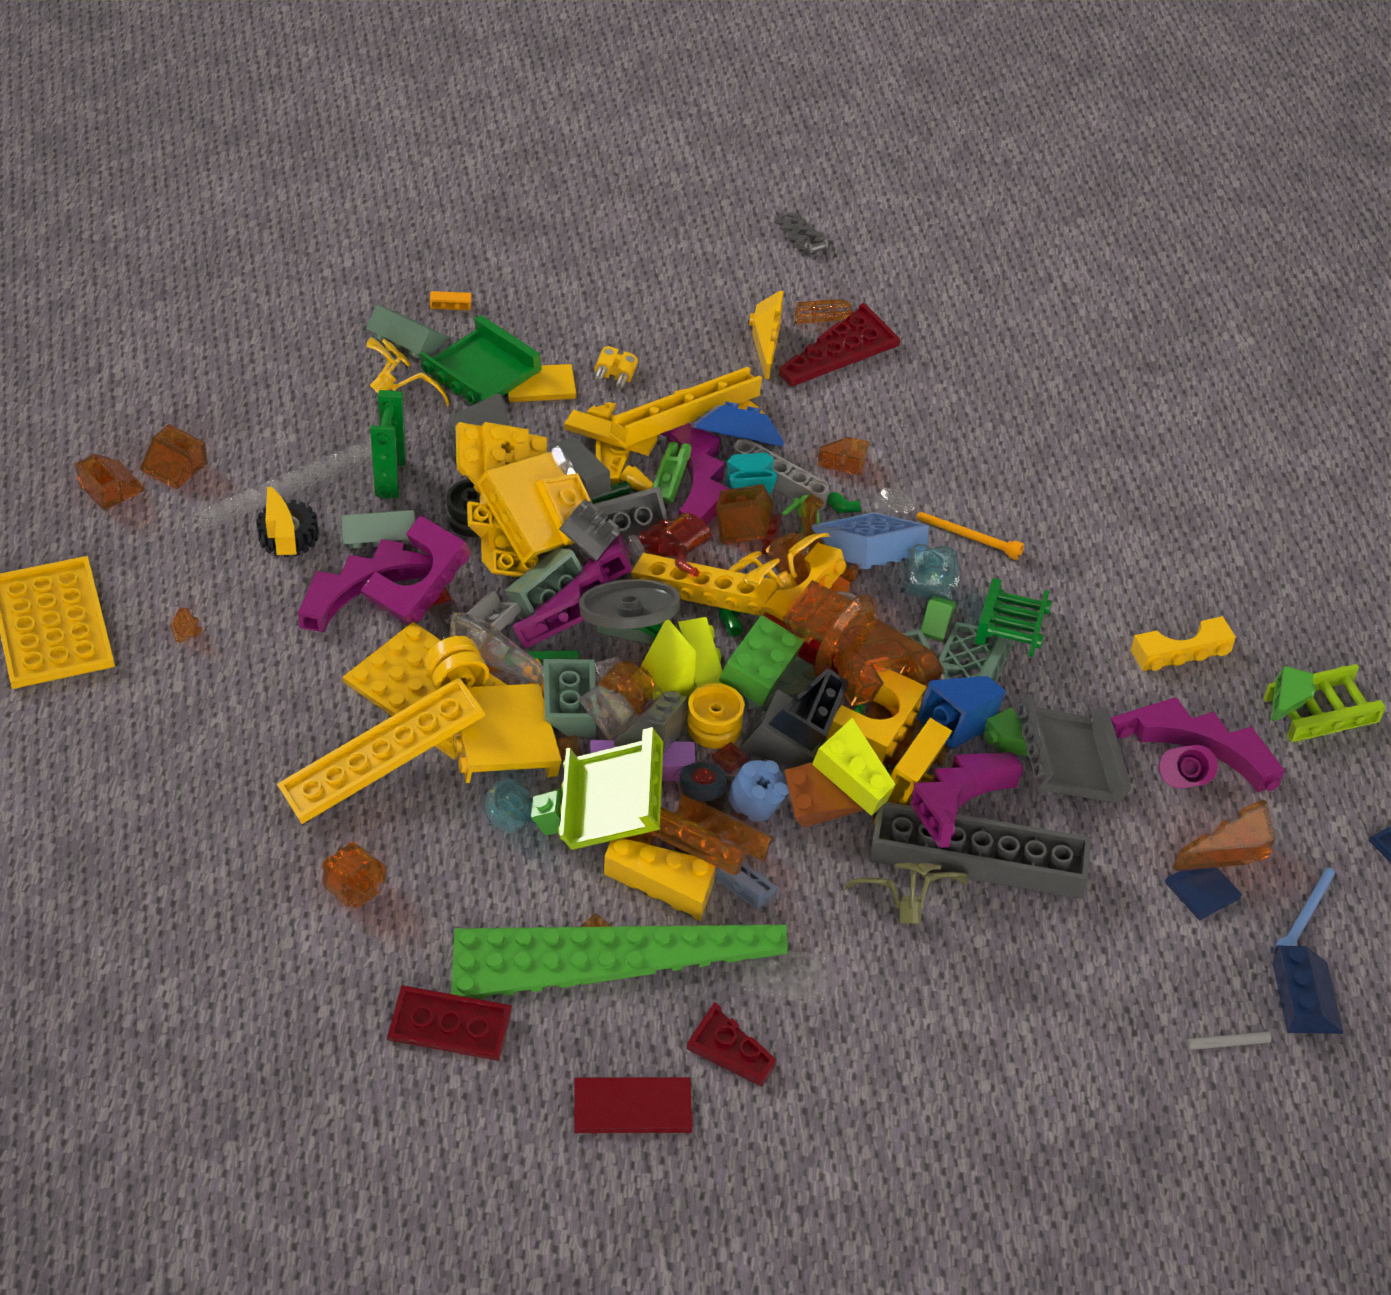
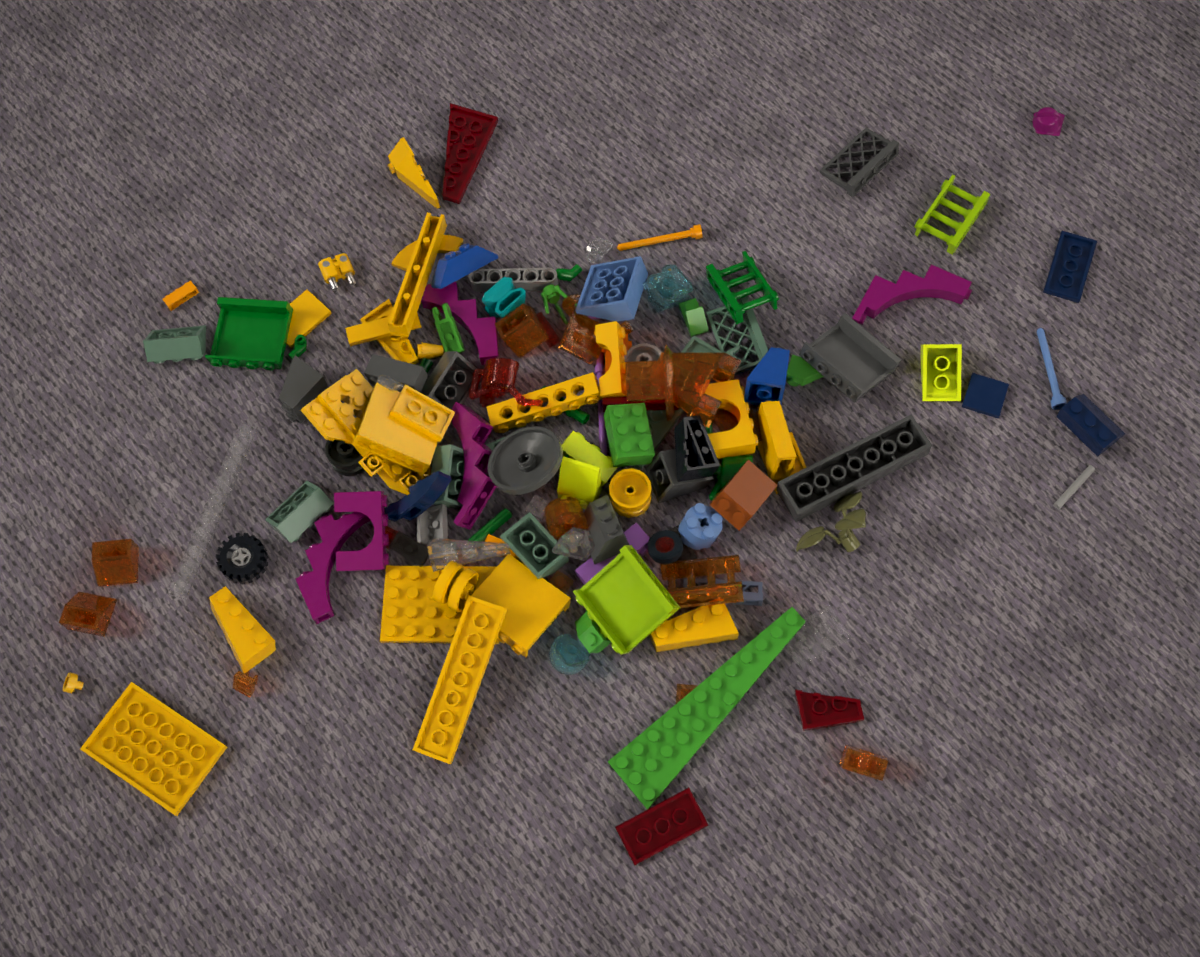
camera: 30 degrees left, 20 degrees up
(37, 523) = (71, 682): none -> yellow tile
(224, 583) = (242, 631): none -> yellow wedge
(280, 523) = (242, 563): yellow slope -> none
(355, 869) = (520, 778): clear orange brick -> none
(386, 380) = (199, 394): yellow plant -> none
(388, 444) = (259, 450): green fence -> none
(499, 578) = (421, 497): none -> dark blue slope
(518, 403) = (299, 347): none -> green arm
(589, 529) = (448, 420): dark grey hinge -> none
(604, 411) = (363, 315): yellow tile -> none
(632, 1105) = (805, 792): dark red tile -> none
(635, 548) = (476, 405): clear tile -> none
(720, 1115) = (863, 762): none -> clear orange brick
(730, 757) = (658, 513): clear red tile -> none
(783, 580) = (585, 377): yellow plant -> none
(820, 242) = (369, 82): flat silver piece -> none
(841, 314) = (426, 135): clear orange window -> none
(845, 455) = (542, 234): clear orange slope -> none
(855, 768) = (753, 474): neon yellow wedge -> none
(952, 787) = (815, 457): magenta arch -> none
(1156, 651) = (834, 246): yellow arch -> none
(1168, 828) = (941, 372): none -> neon yellow slope
(1188, 766) = (919, 319): magenta piece -> none
(1232, 843) = (985, 352): clear orange wedge -> none
(1263, 608) = (870, 167): none -> dark grey fence
(1291, 691) = (936, 225): bright green slope -> none

